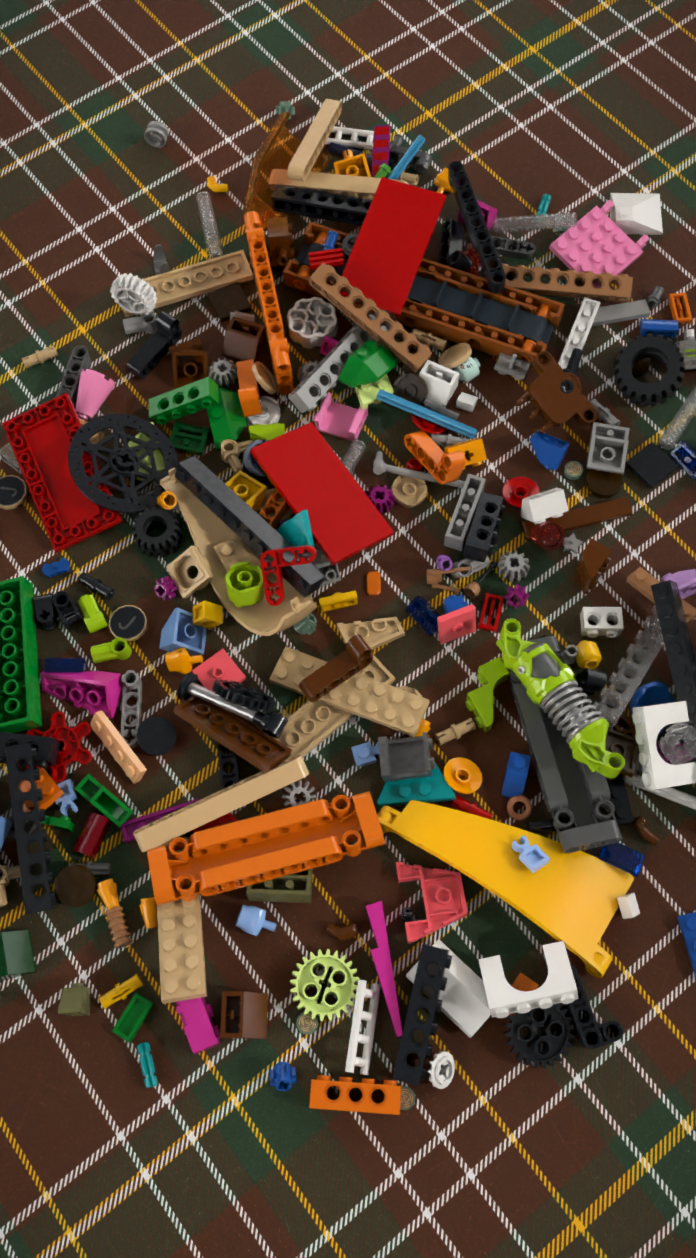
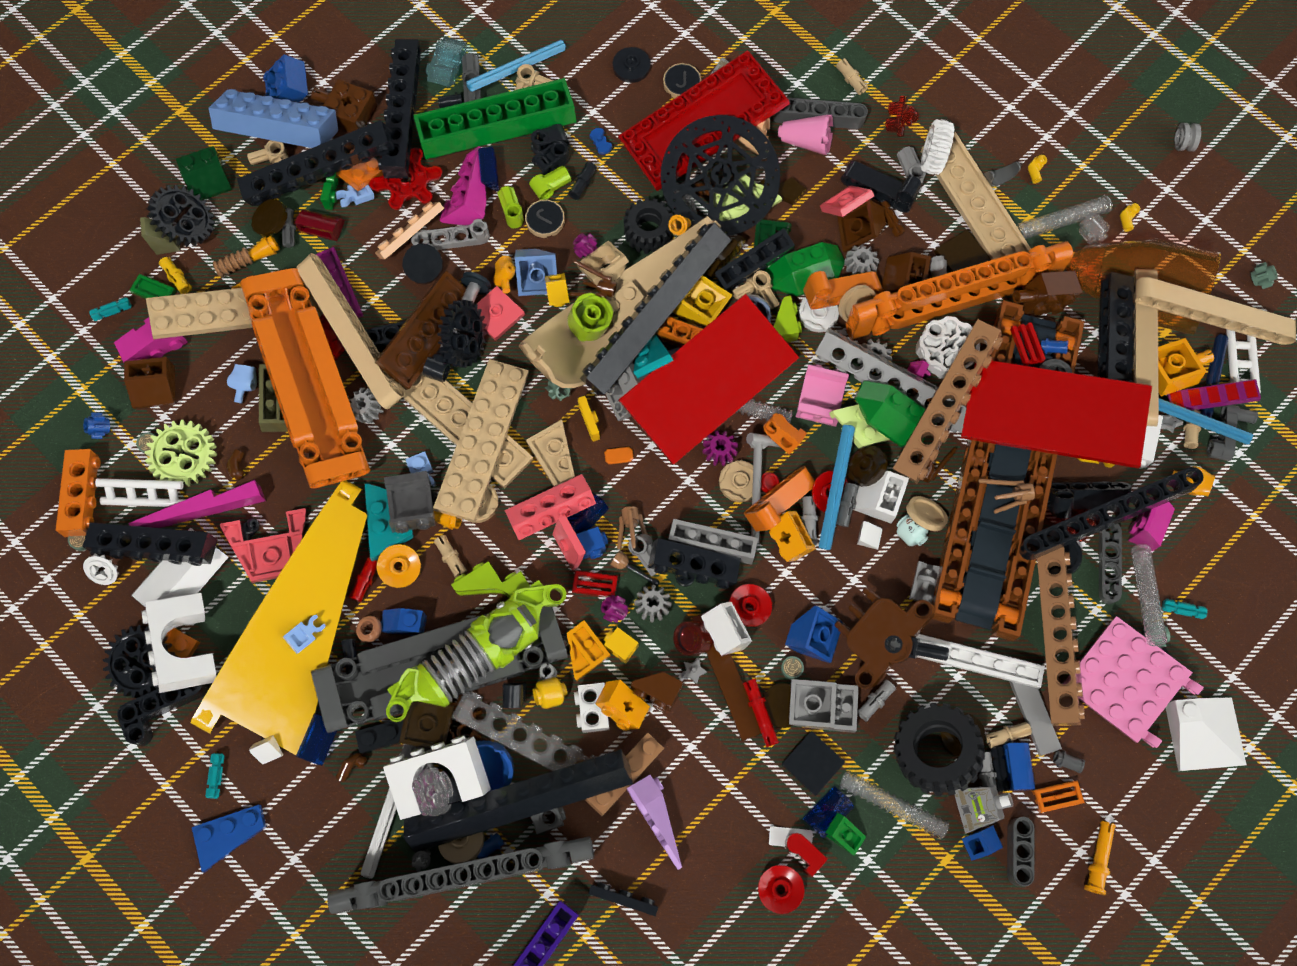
camera: 80 degrees right, 5 degrees up
(57, 976) = (168, 204): none -> black gear
(82, 324) = (903, 116): none -> clear red hips
(103, 800) = (354, 227): green slope -> none
(157, 239) = (1035, 166): none -> yellow arm
(165, 372) = (846, 200): none -> coral plate
(183, 401) = (808, 223): green brick -> none
(211, 445) = (755, 260): none -> black brick
(218, 566) = (606, 287): none -> reddish brown plant
(225, 207) = (1094, 229): none -> clear head
(279, 562) = (606, 334): red beam -> none
(338, 670) = (508, 433): reddish brown beam -> none
(373, 447) = (783, 432): none -> orange leg
(383, 171) = (1183, 399): bright green pin -> none
(405, 615) = (550, 505): none -> coral brick
(430, 339) = (949, 483): tan pin -> none
(445, 566) = (643, 522): medium lavender pin -> none
(452, 282) = (1021, 492): none -> medium nougat plant
(548, 594) = (620, 644): none -> yellow brick
(550, 623) = (585, 650): none -> light orange wing
(604, 593) = (622, 705): none -> light orange brick
(610, 494) = (760, 712): none -> red pin
(633, 329) = (1008, 734): none -> tan axle
(650, 957) = (215, 776): none -> teal axle

